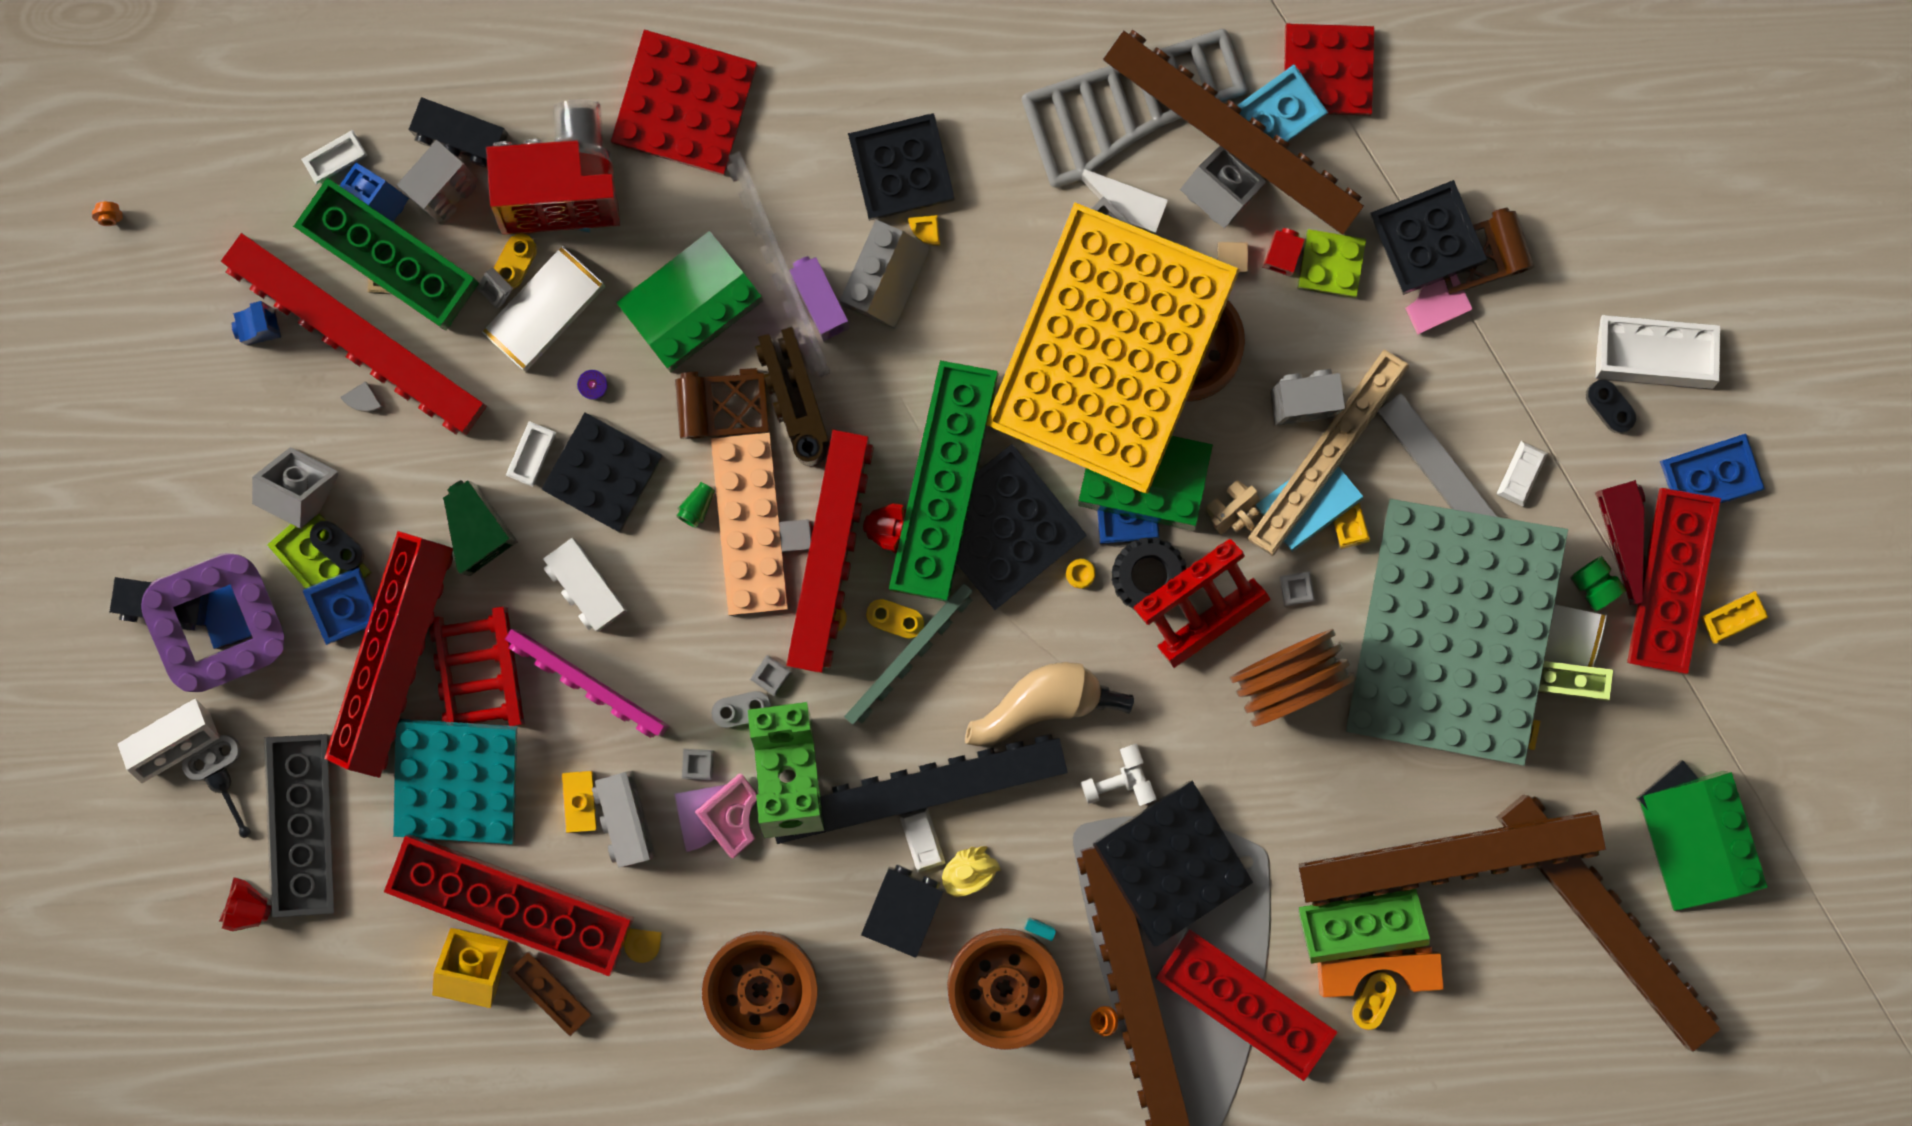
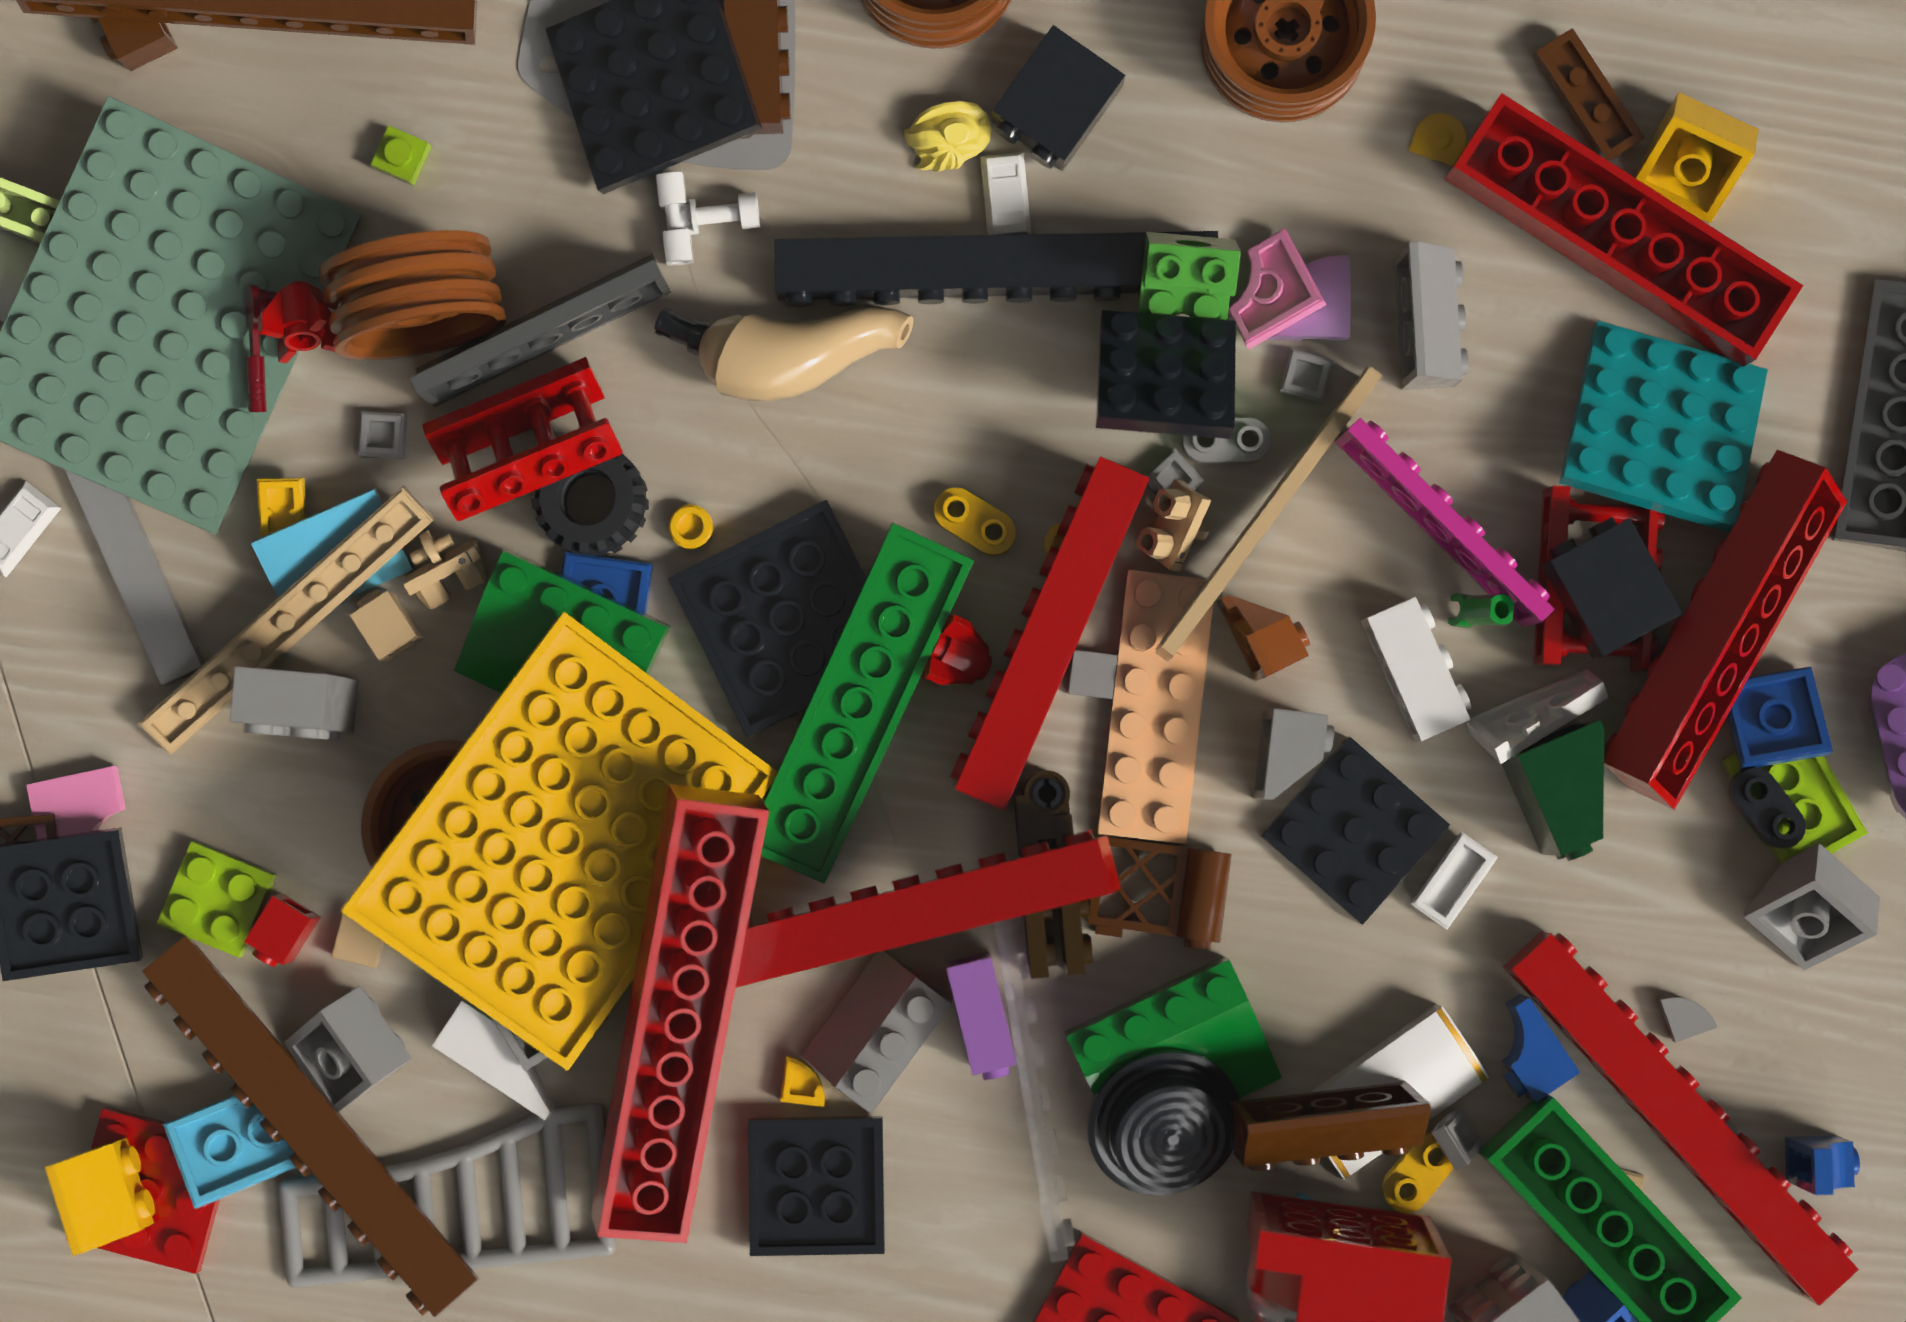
camera: 165 degrees left, 0 degrees up
(453, 350) = (1537, 1058): none -> blue arch
(470, 663) = (1610, 586): none -> black brick
(500, 572) = (1533, 716): none -> white wing
(550, 632) = (1482, 610): none -> green bar
(579, 801) = (1489, 360): yellow plate -> none
(581, 277) = (1328, 1125): none -> reddish brown slope
(592, 384) = (1342, 962): dark purple tile -> none
(656, 512) = (1289, 749): none -> light grey slope
(686, 256) = (1162, 1122): none -> black piece
(687, 583) = (1264, 636): none -> dark orange slope
(695, 506) = (1228, 750): green cone -> none
(703, 664) = (1267, 513): none -> tan tile
(761, 644) = (1176, 525): none -> tan hips
(790, 736) = (1166, 374): none -> black plate
(887, 346) = (930, 908): none -> red brick
(901, 664) = (980, 451): sand green plate -> none
(1012, 254) = (678, 1013): none -> red brick
(1040, 928) = (866, 30): teal tile -> none
(1208, 681) = (540, 331): none -> dark grey arch
(1263, 464) = (386, 625): none -> tan brick
(1329, 777) = (401, 155): none -> lime plate
(1353, 59) = (100, 1195): none -> yellow slope
(1365, 647) = (298, 319): none -> red brick
(1397, 653) = (255, 303): none -> dark red piece

